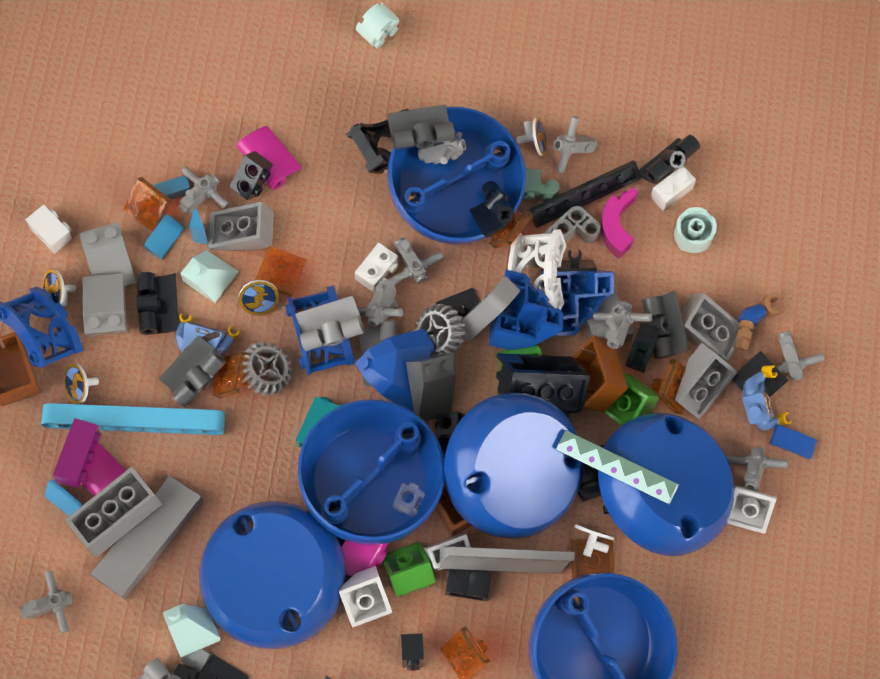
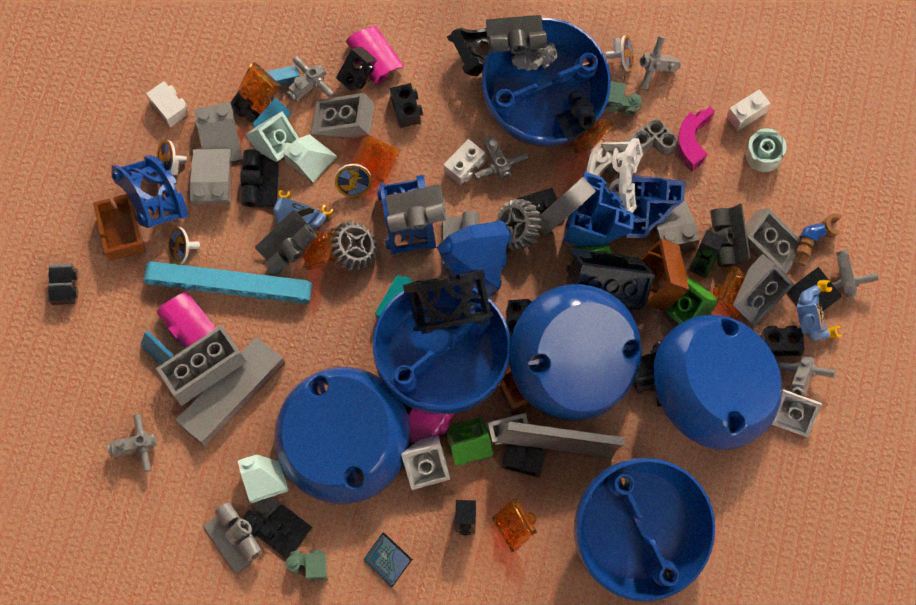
camera: 10 degrees right, 0 degrees up
(77, 453) = (172, 308): magenta brick -> none
(132, 226) = (242, 107): none -> black plate
(168, 256) = (273, 136): none -> light aqua slope
(197, 228) = (302, 113): dark azure slope -> none
(304, 211) = (402, 106): none -> black brick
(344, 413) = (420, 290): none -> black fence
(379, 307) = (466, 195): light grey piece -> none
(412, 507) = (477, 383): clear brick -> none
(432, 385) = (506, 272): dark grey slope -> none
(576, 264) = (650, 173): black piece -> none
(585, 193) = (665, 109): black tile -> none
(592, 543) = (643, 432): white shield -> none
(597, 563) = (642, 443): dark orange tile -> none
(617, 467) = (672, 360): tile -> none
(619, 322) = (686, 229): light grey piece -> none
(669, 159) = (747, 83): black panel -> none
(731, 439) = (783, 346): none -> black brick
(793, 441) = (842, 353): blue slope -> none

